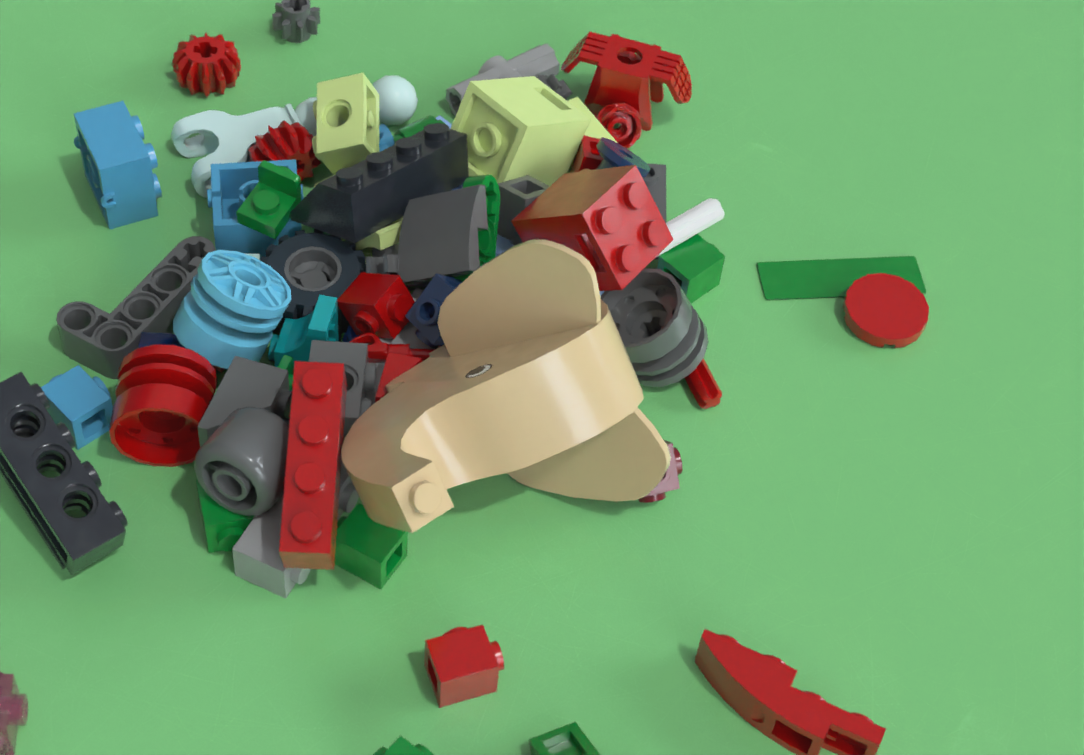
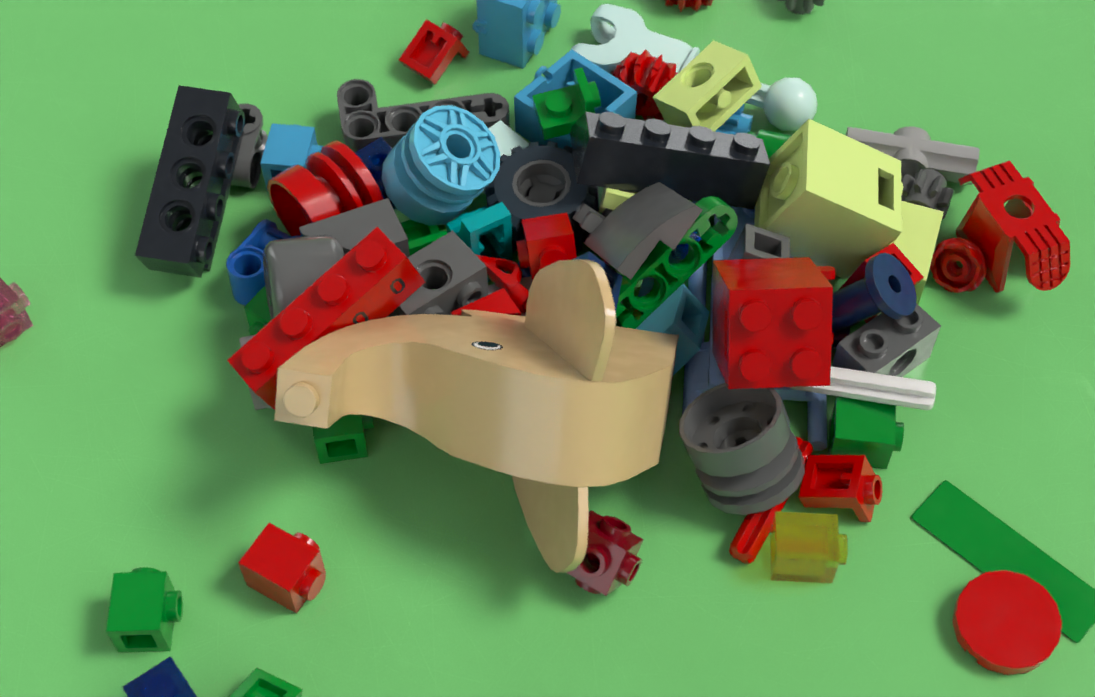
camera: 55 degrees right, 5 degrees up
(82, 248) = (433, 50): none -> red bracket
(161, 495) = (246, 262): none -> blue piece
(720, 306) = (841, 483): none -> red bracket
(744, 362) = (806, 547): none -> clear yellow brick

